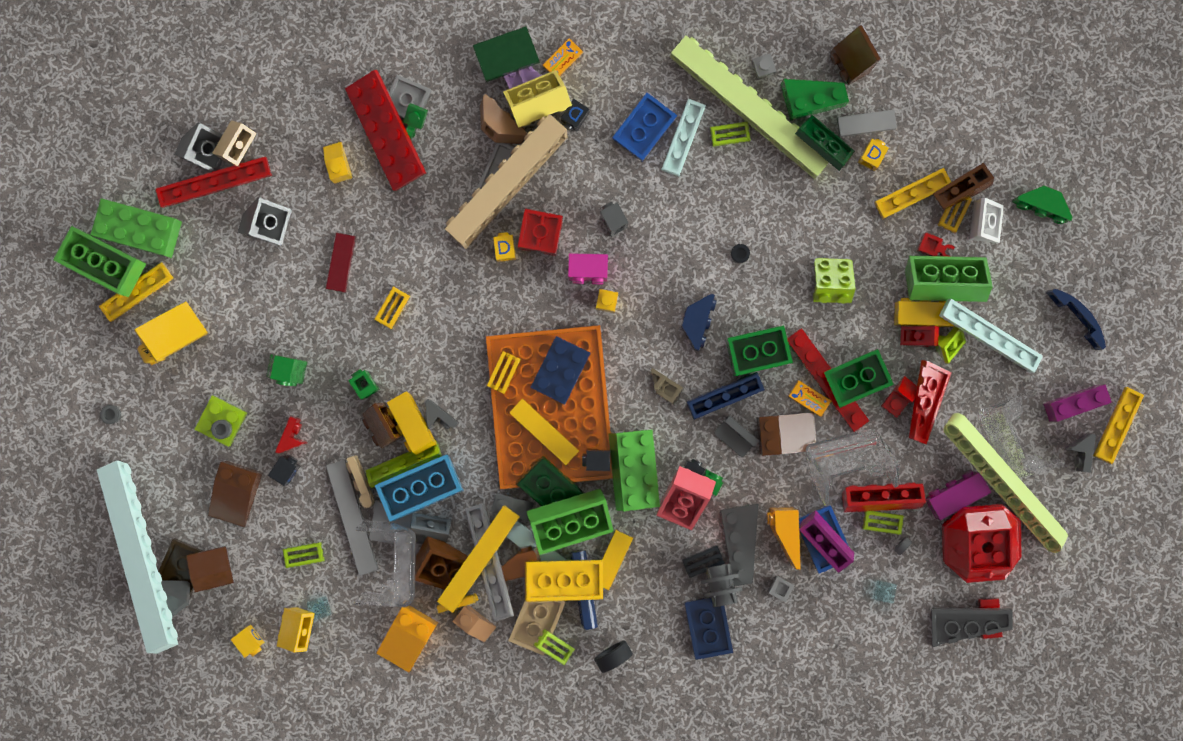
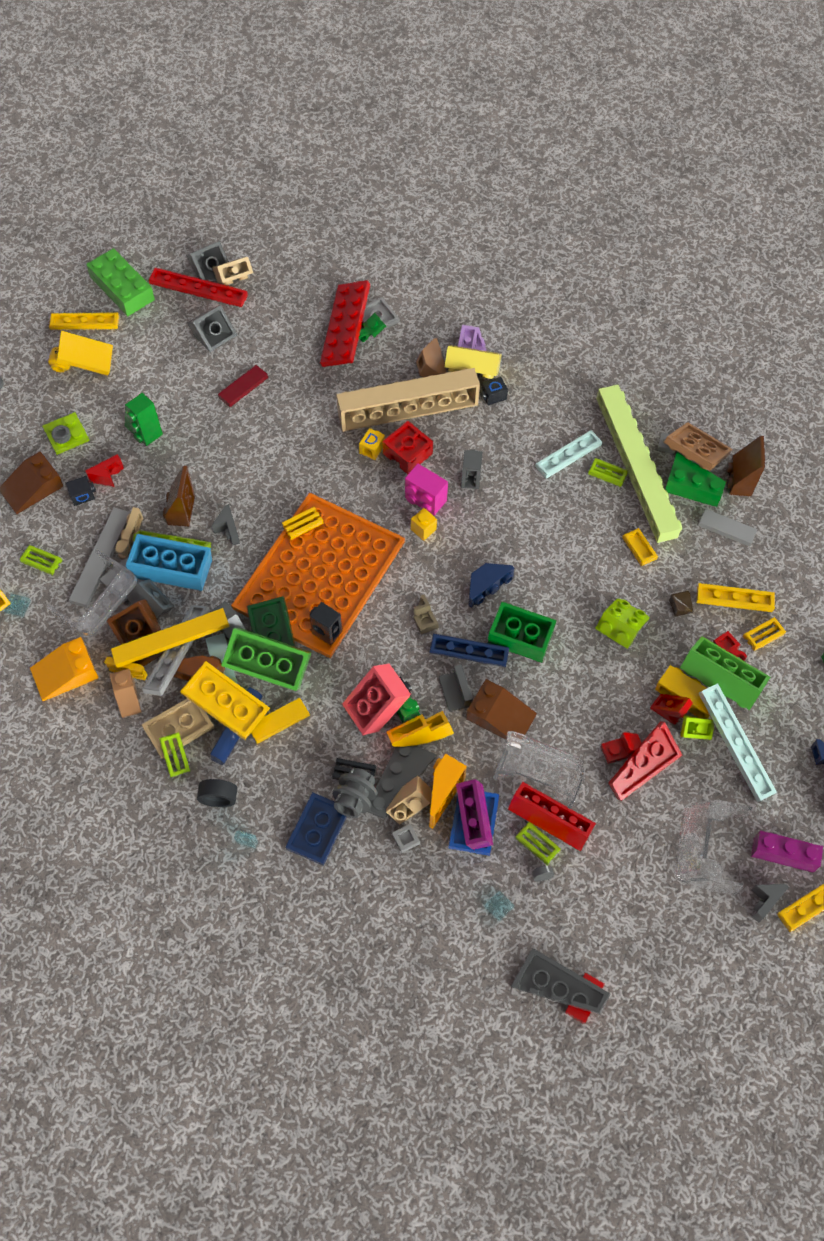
camera: 30 degrees right, 25 degrees down
(99, 261) = (77, 284): bright green brick -> none
(336, 163) = (292, 325): yellow slope -> none
(363, 392) = (194, 467): green brick -> none
(406, 297) = (256, 437): yellow tile -> none
(410, 423) = (202, 515): yellow brick -> none
(506, 54) = (471, 324): dark green tile -> none
(544, 431) = (299, 583): yellow tile -> none
(560, 370) = (348, 548): dark blue plate -> none
(563, 57) = (514, 353): light orange tile -> none
(634, 470) = (350, 656): bright green brick -> none
(644, 127) = (542, 428): blue plate -> none
(661, 673) = (246, 839): none -> clear light blue tile
(733, 494) = (420, 730): none -> yellow slope
(740, 253) = (557, 558): black tile -> none
(765, 557) = (409, 800): none -> tan slope
(797, 57) = (698, 446): none -> medium nougat plate
(803, 194) = (640, 547): none -> yellow tile
(809, 398) = (540, 700): light orange tile -> none
(817, 366) = (566, 696): red plate -> none
(825, 142) = (682, 516): dark green tile -> none
(858, 378) = (595, 704): green slope -> none
(871, 229) = (681, 603): none -> dark brown slope
(873, 154) = (718, 549): yellow brick -> none
(957, 494) = (623, 861): magenta brick -> none
(965, 187) = (786, 615): reddish brown slope -> none
(968, 532) = (645, 914): red piece -> none
(986, 221) = (789, 655): white slope -> none
(1005, 482) = (675, 878): yellowish green beam -> none

